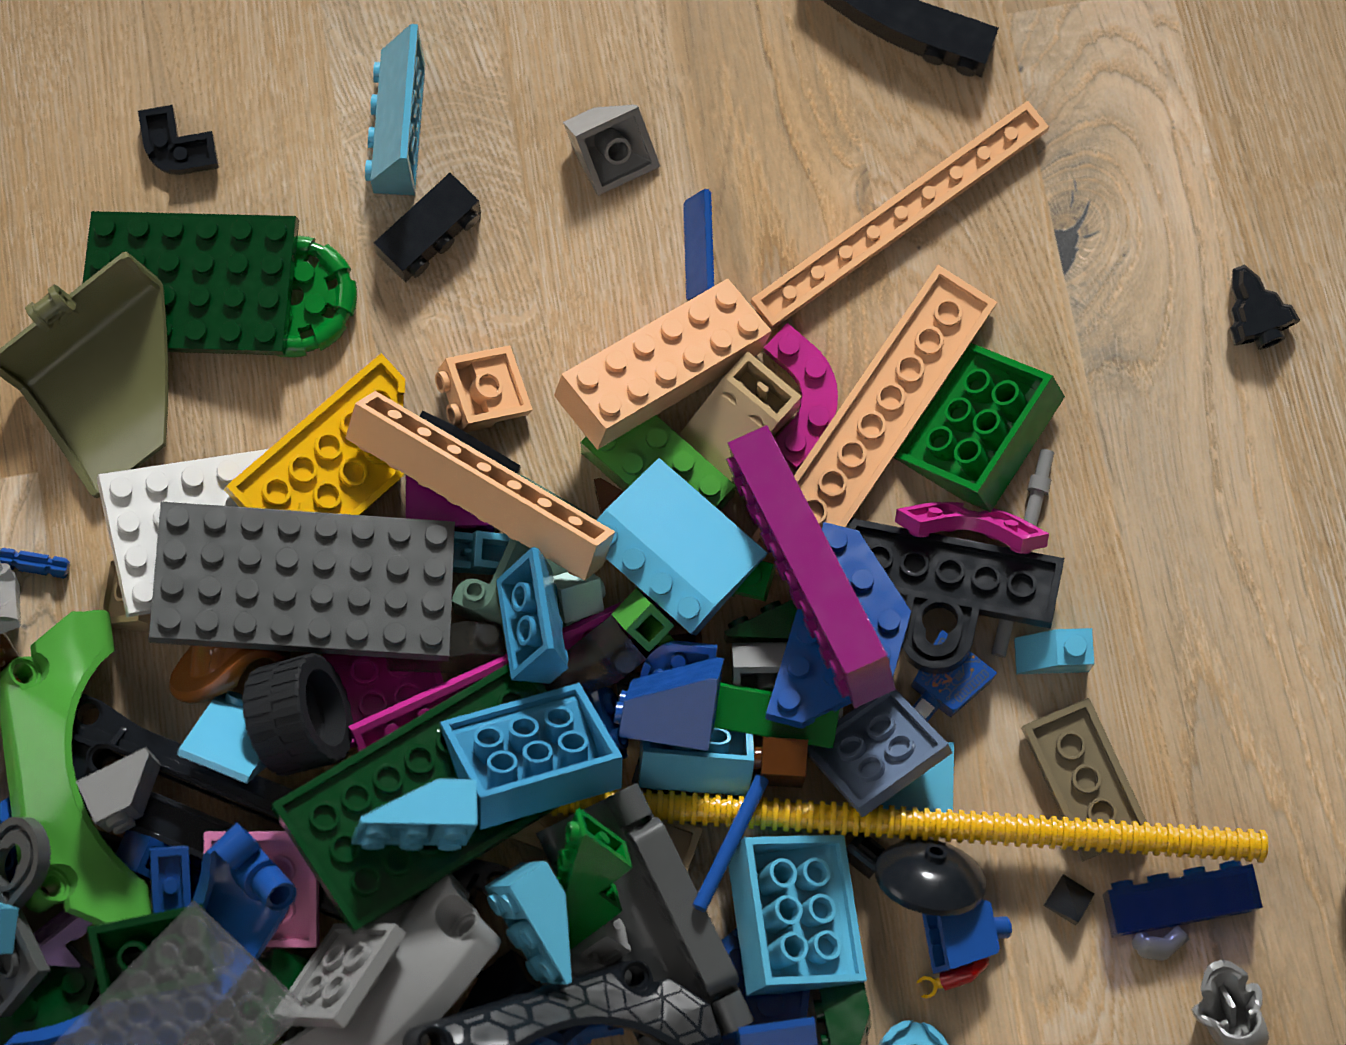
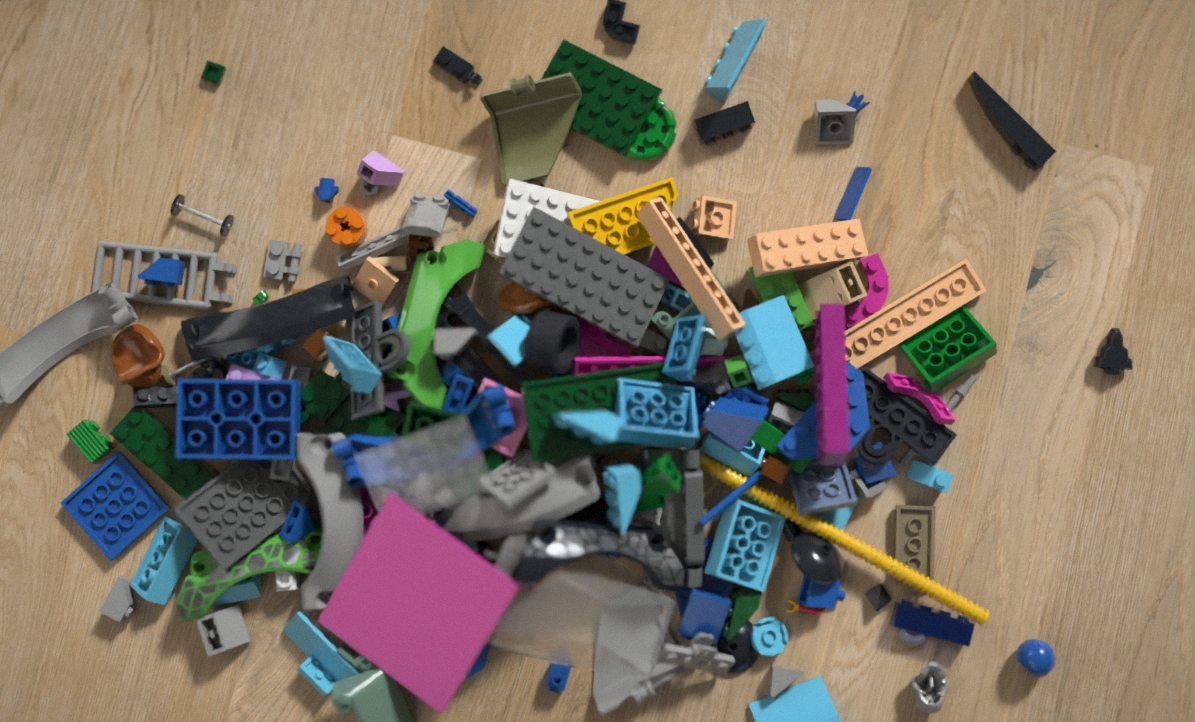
camera: 30 degrees right, 10 degrees up
(632, 94) = (855, 101): none -> blue piece
(899, 215) = (960, 223): light nougat plate -> none
(960, 727) = (870, 489): none -> light grey tile

